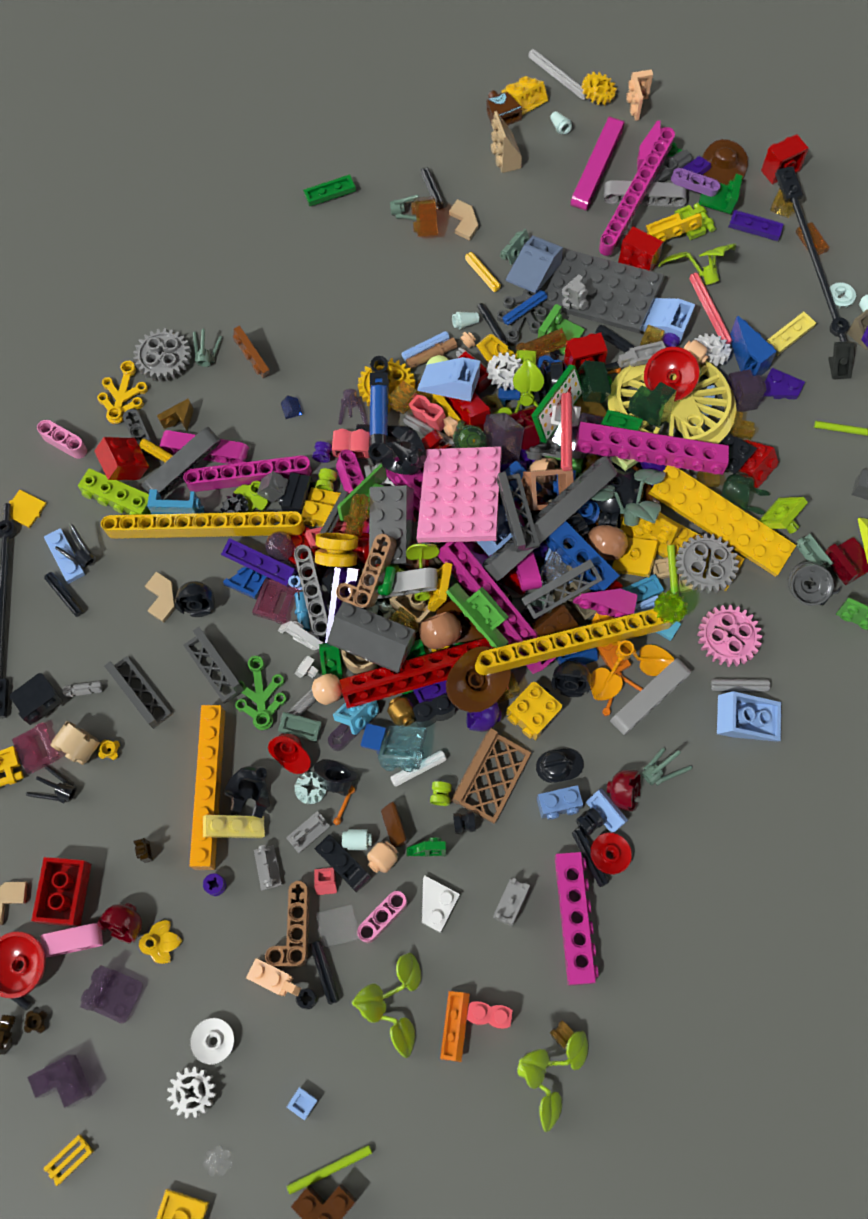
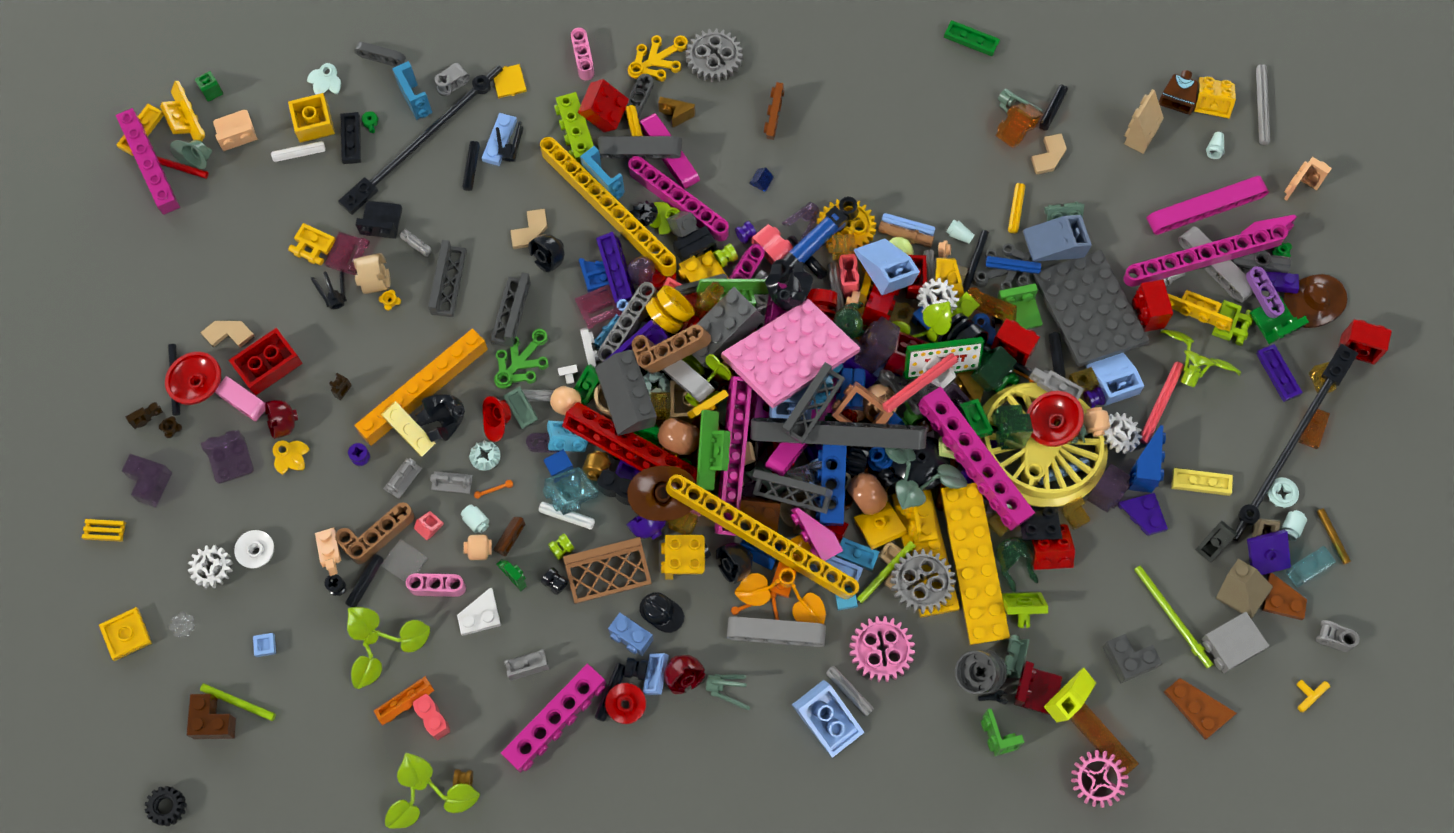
camera: 45 degrees right, 0 degrees up
(203, 356) = (741, 83): sand green plant -> none
(336, 776) = (507, 463): black piece -> none
(342, 863) = (449, 525): black plate -> none
(387, 586) = (670, 367): green arm -> none
(575, 293) = (1058, 289): light grey piece -> none
(598, 88) = (1280, 145): yellow gear -> none
(670, 607) = (859, 585): clear neon green gear -> none

